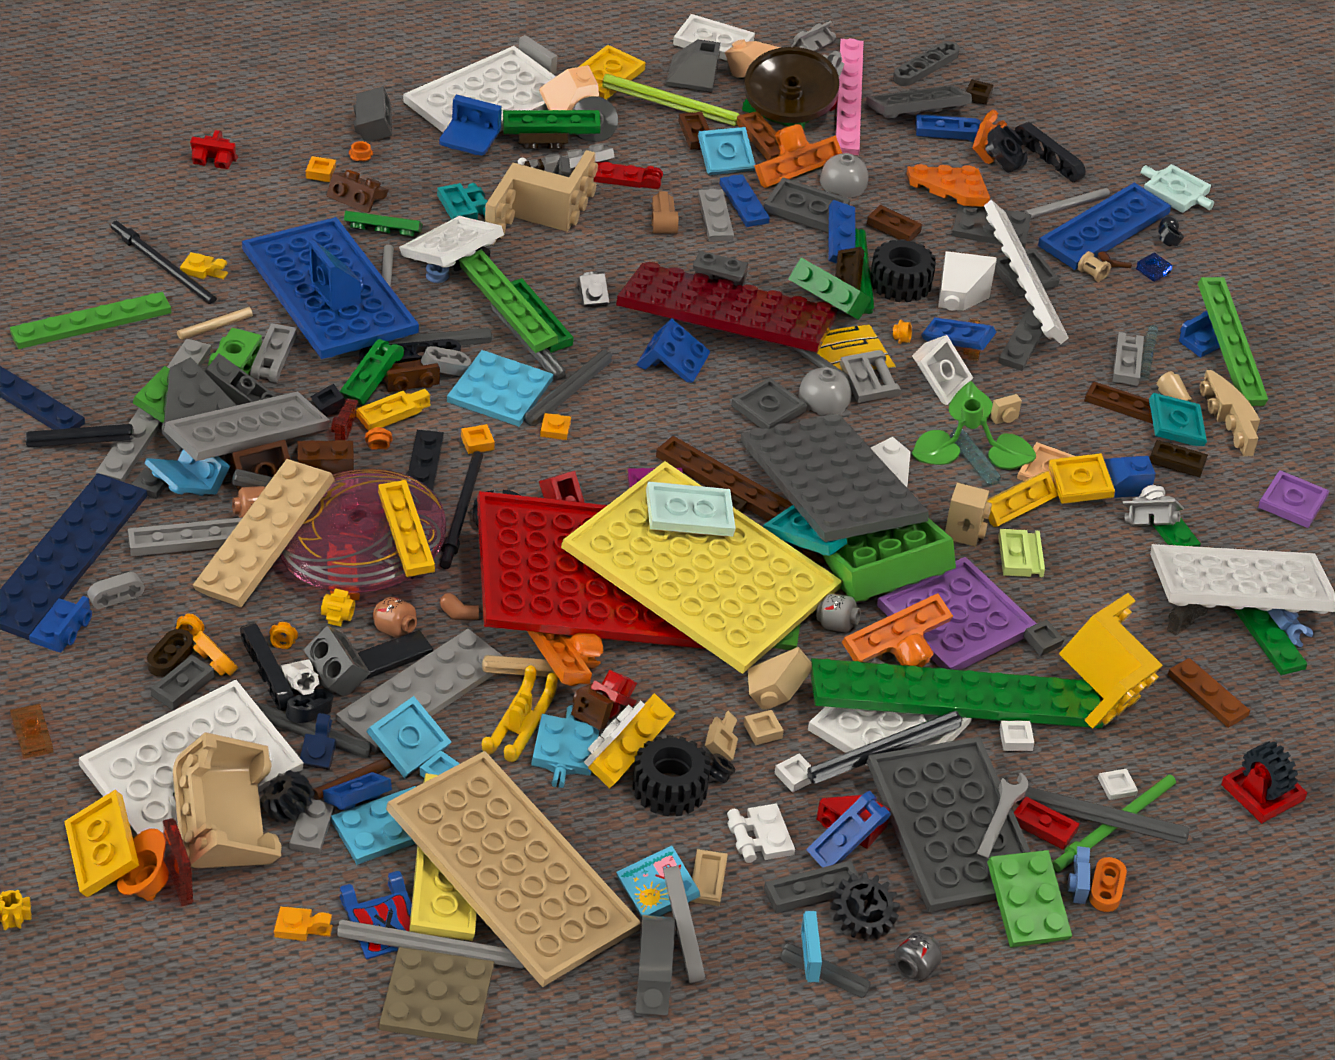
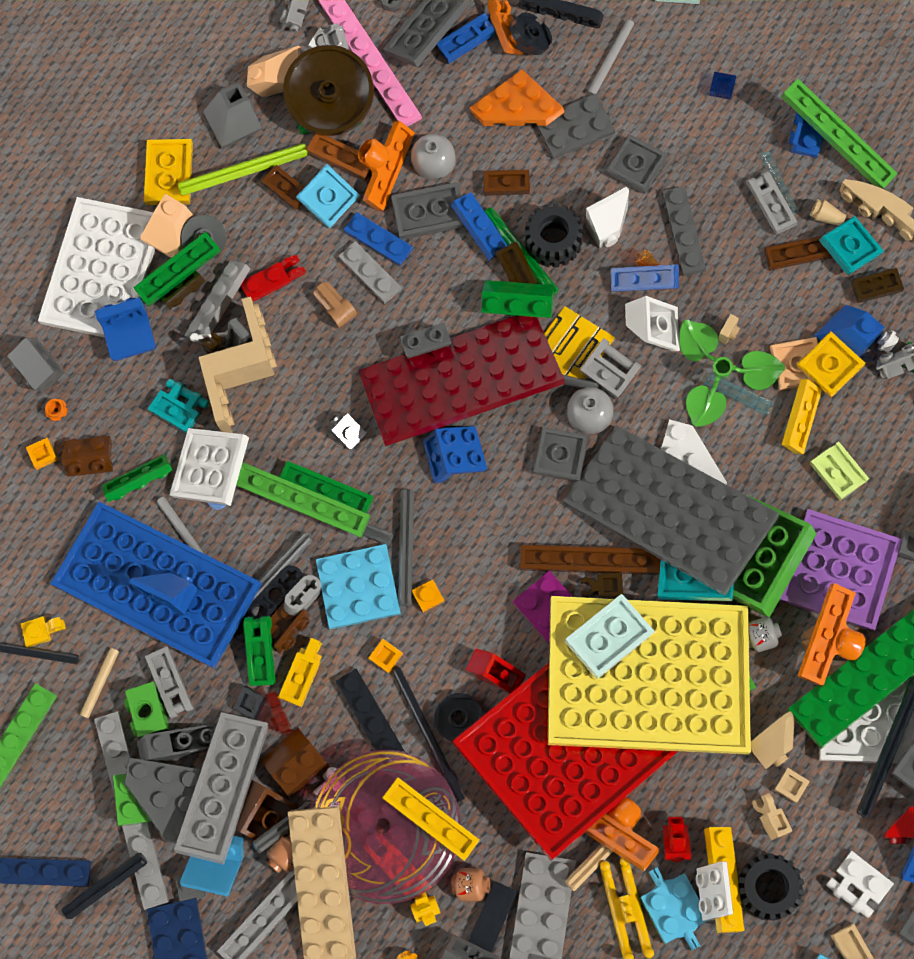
camera: 20 degrees left, 30 degrees up
(378, 438) = (316, 713): orange plate -> none
(456, 610) = (501, 838): nougat arm -> none
(538, 53) = (103, 193): light grey tile -> none
(591, 707) = (672, 870): reddish brown bracket -> none
(706, 29) = (217, 66): white plate -> none
(721, 768) = (793, 849): black bush -> none
(793, 772) = (843, 811): white plate -> none
(902, 332) = (597, 299): light orange plate -> none
(967, 514) = (786, 471): tan brick -> none
(1027, 278) = (645, 172): white plate -> none
(1088, 261) = (681, 119): tan bush -> none
(1104, 225) = (656, 65): blue plate -> none
(1114, 263) = (682, 103): reddish brown hand -> none
(1169, 231) = (708, 38): black plate -> none

